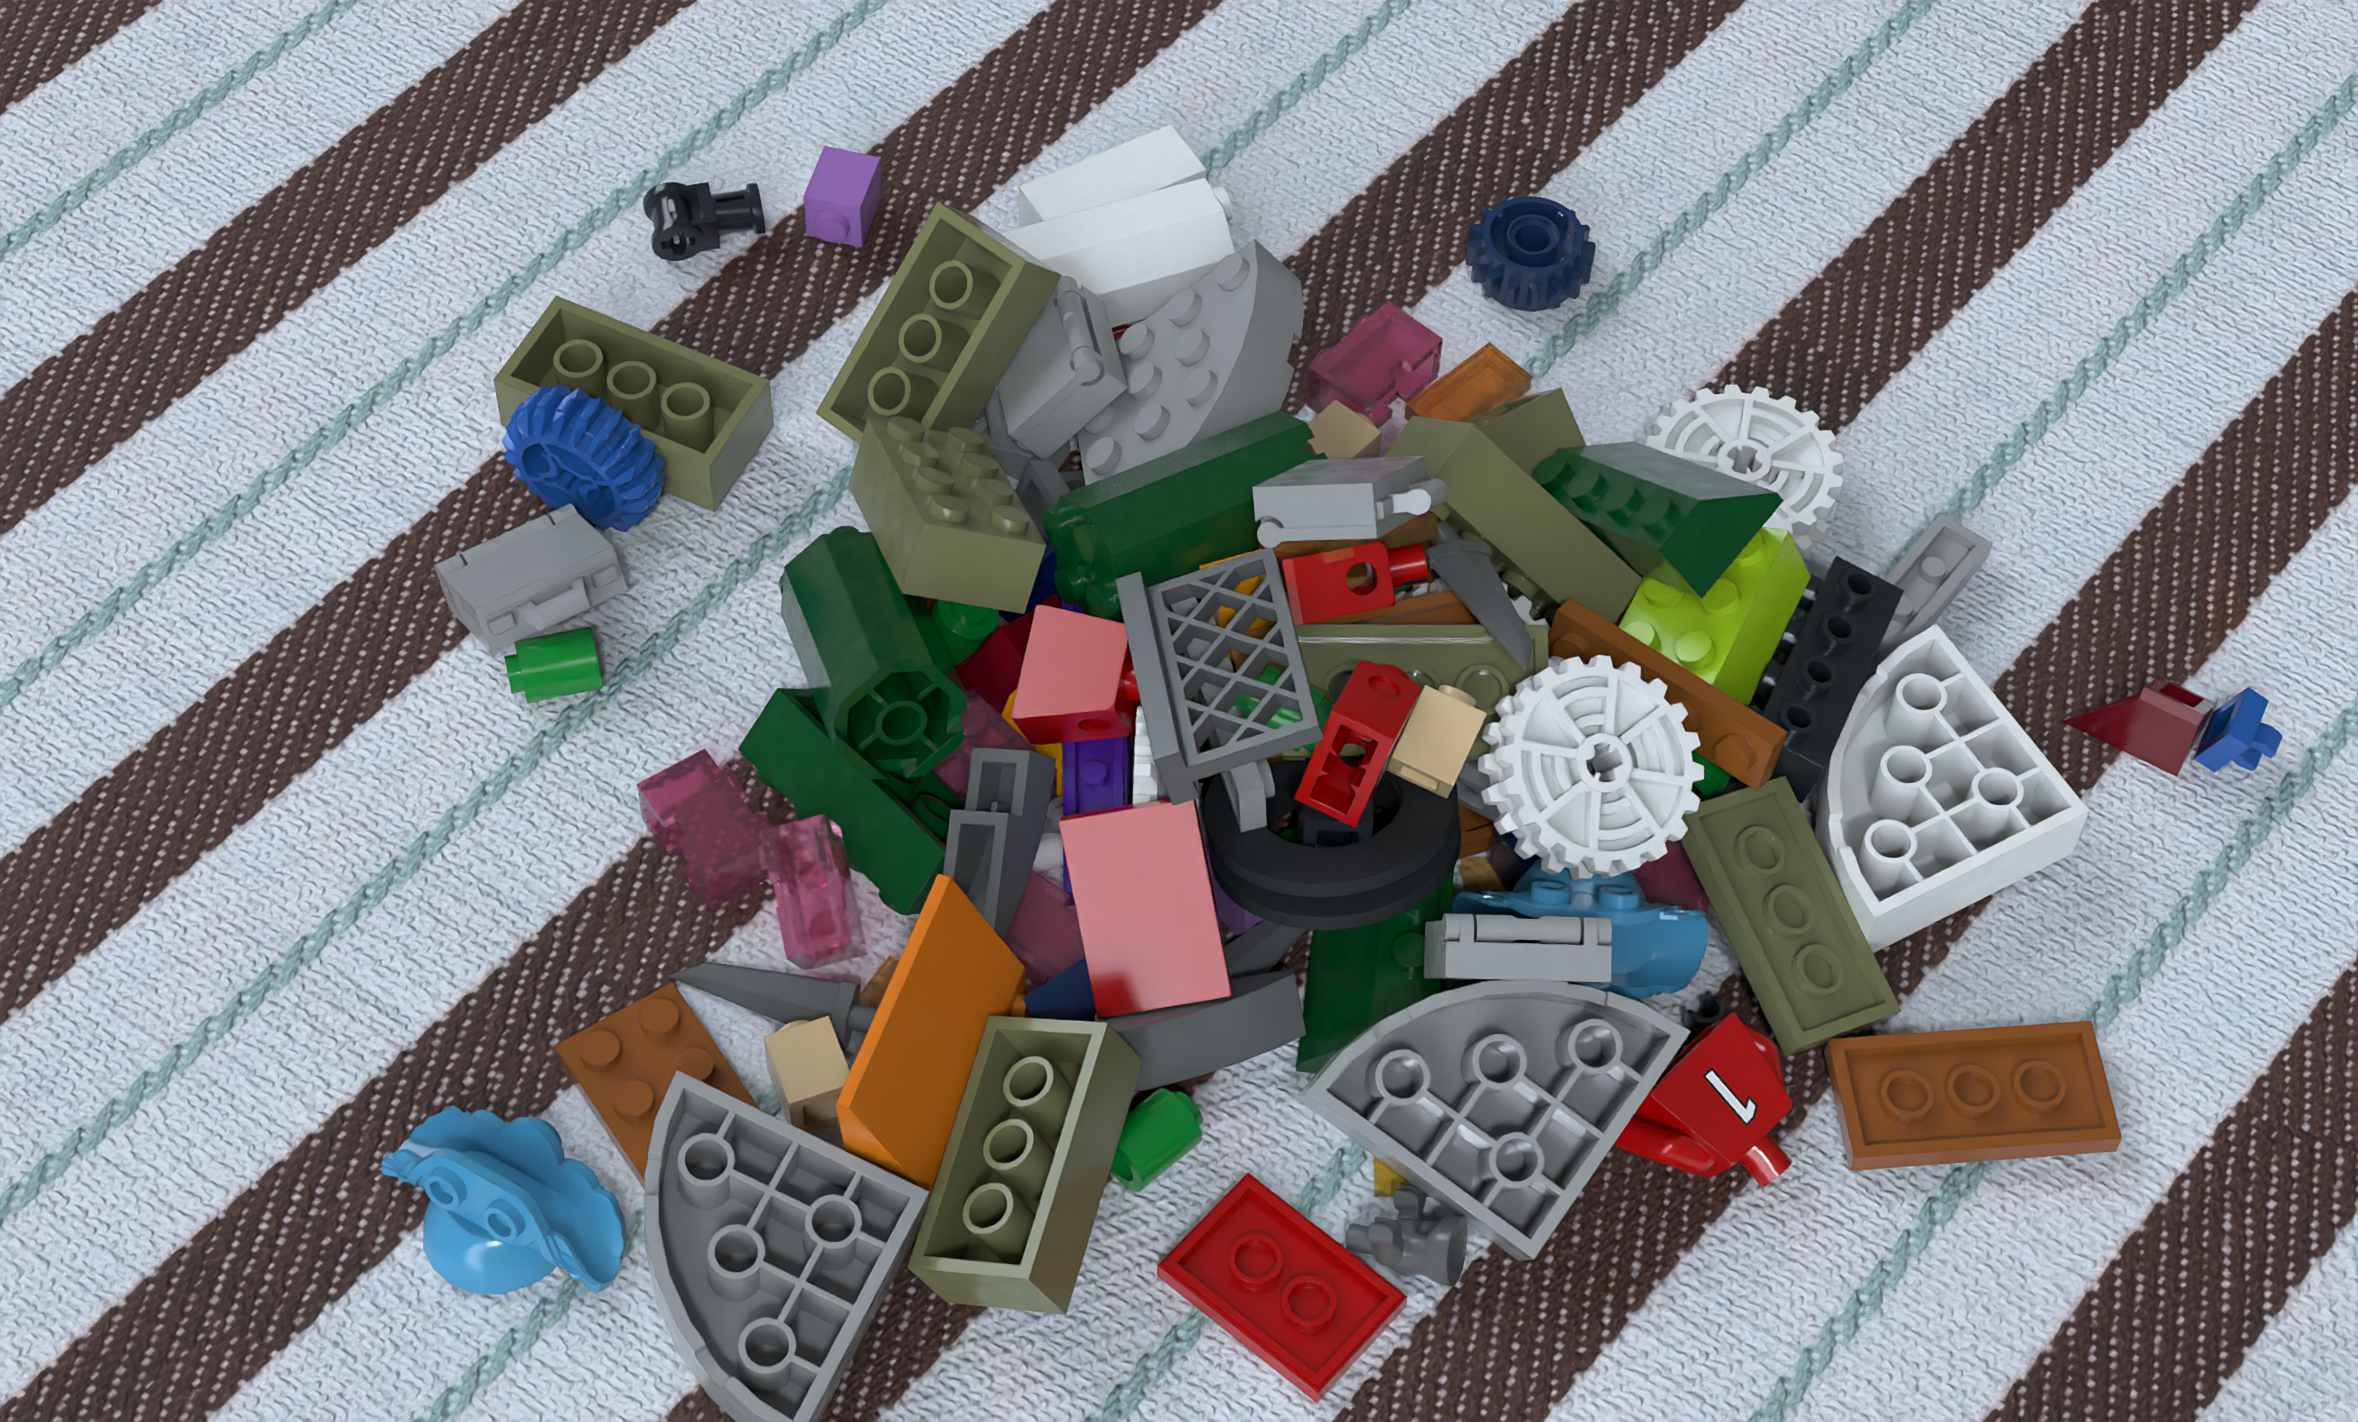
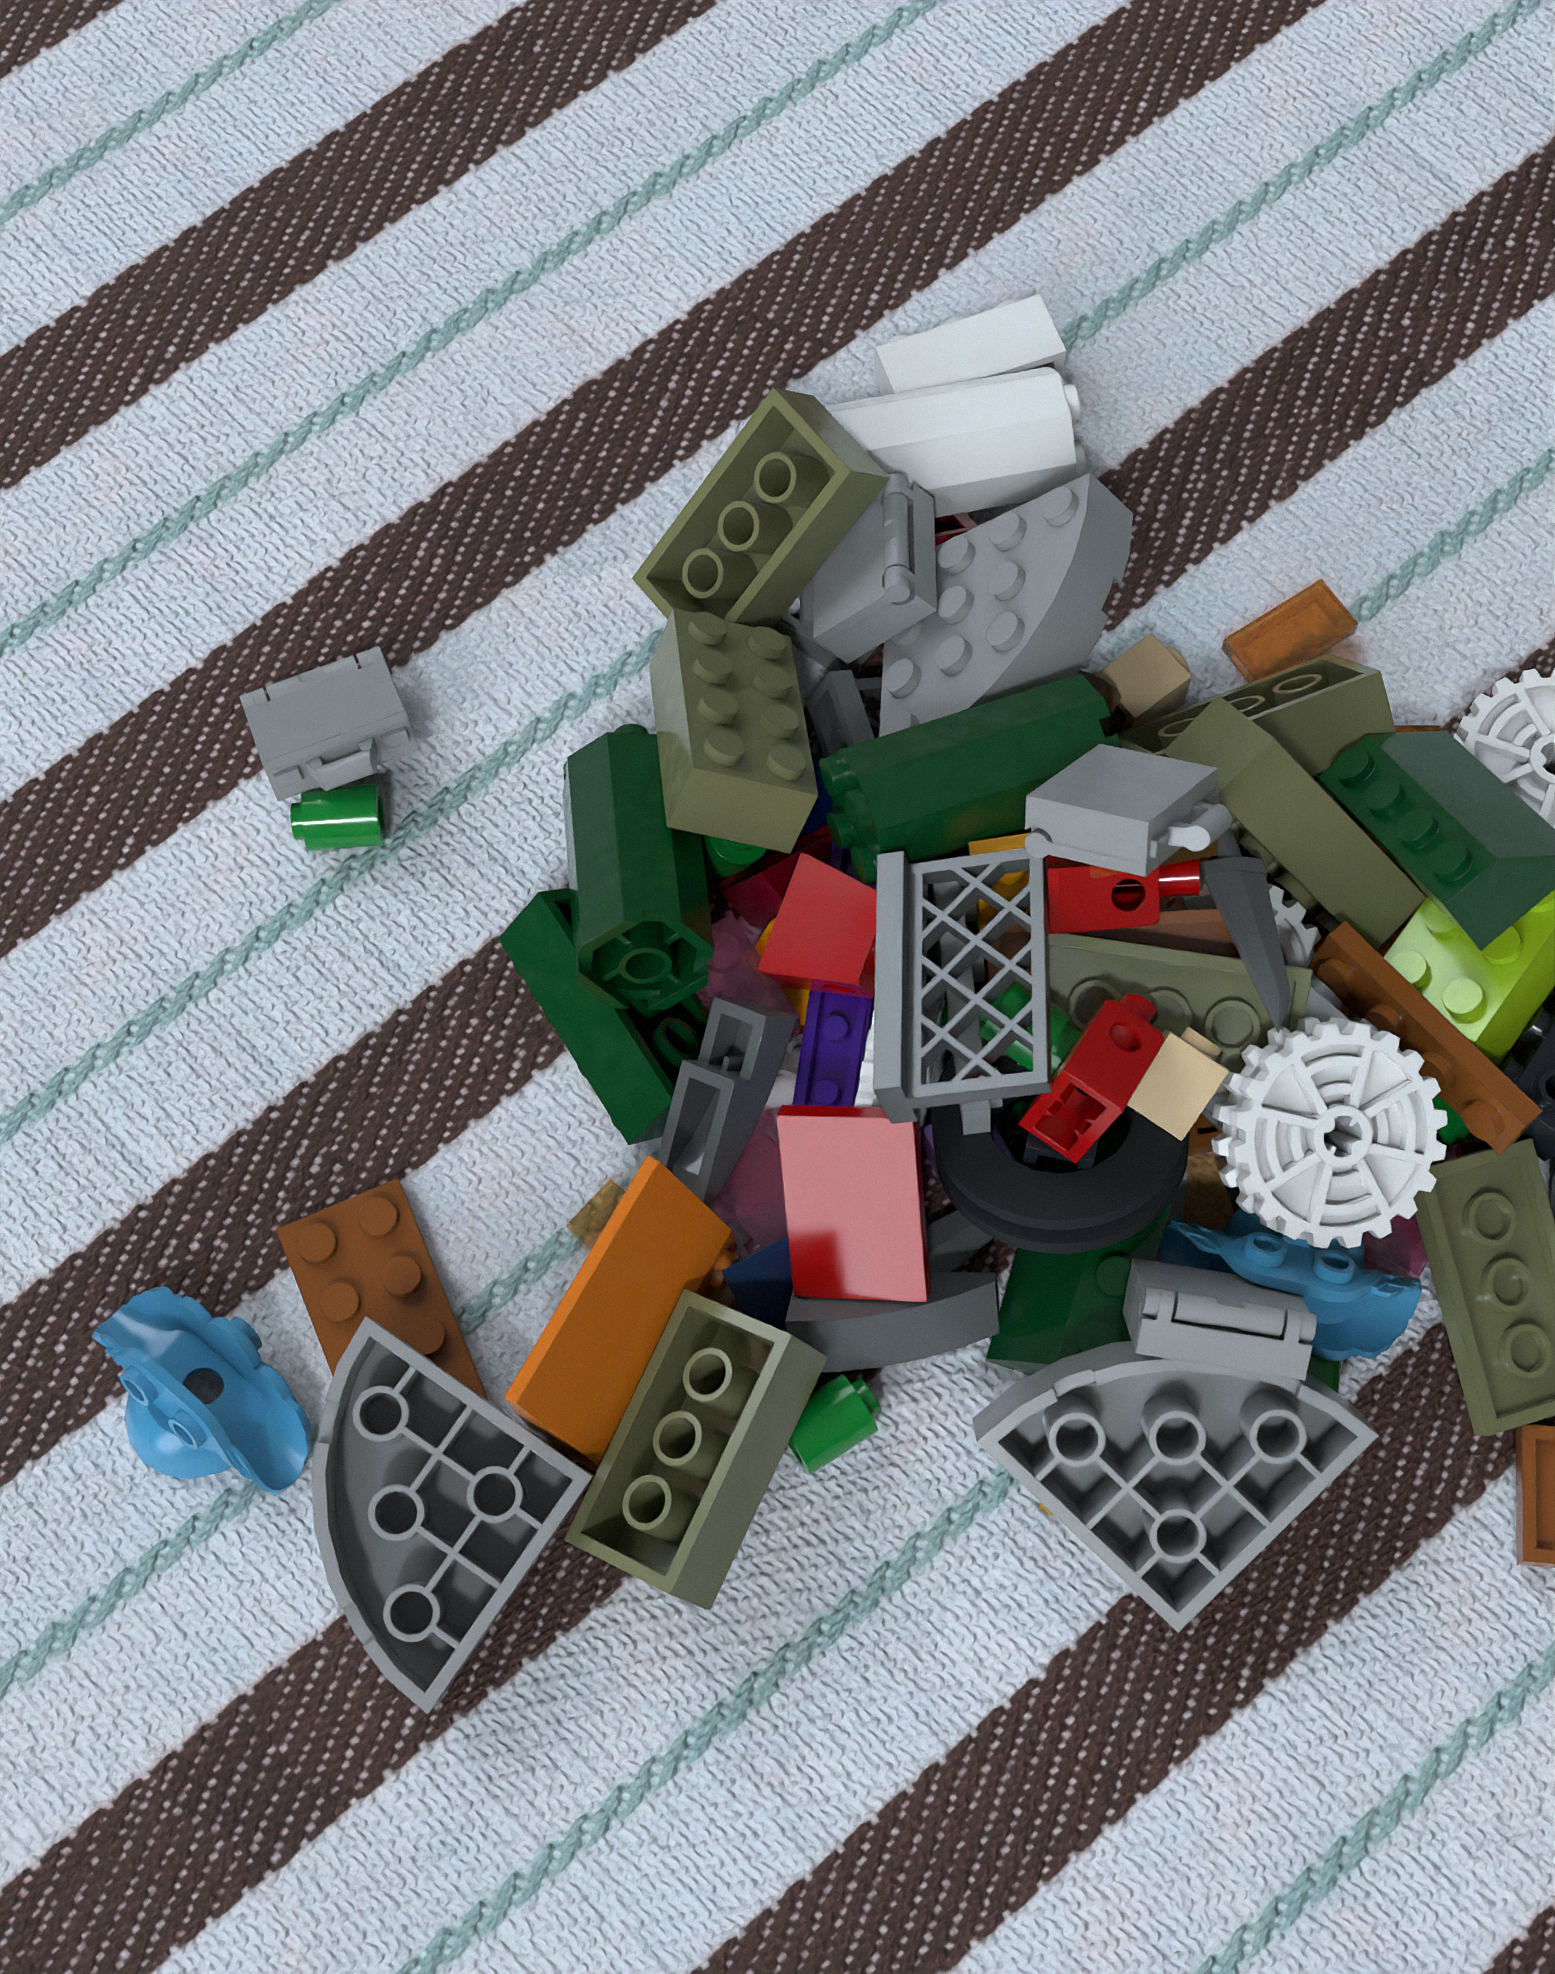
camera: 15 degrees right, 15 degrees up
(584, 456) = (398, 600): blue gear -> none
(692, 406) = (459, 541): olive brick -> none
(699, 217) = (558, 335): black connector -> none
(705, 817) = (451, 997): clear pink brick -> none
(785, 995) = (521, 1219): dark grey bar -> none
(807, 1072) = (509, 1299): tan brick -> none
(813, 892) = (542, 1114): clear pink brick -> none
(843, 196) = (702, 330): medium lavender brick -> none
(1282, 1287) = (930, 1598): red tile -> none
(1375, 365) = (1205, 587): clear pink brick -> none
(1411, 1244) = (1063, 1579): dark grey piece -> none
(1530, 253) = (1388, 455): dark blue gear -> none
(1715, 1102) = (1404, 1481): red torso -> none

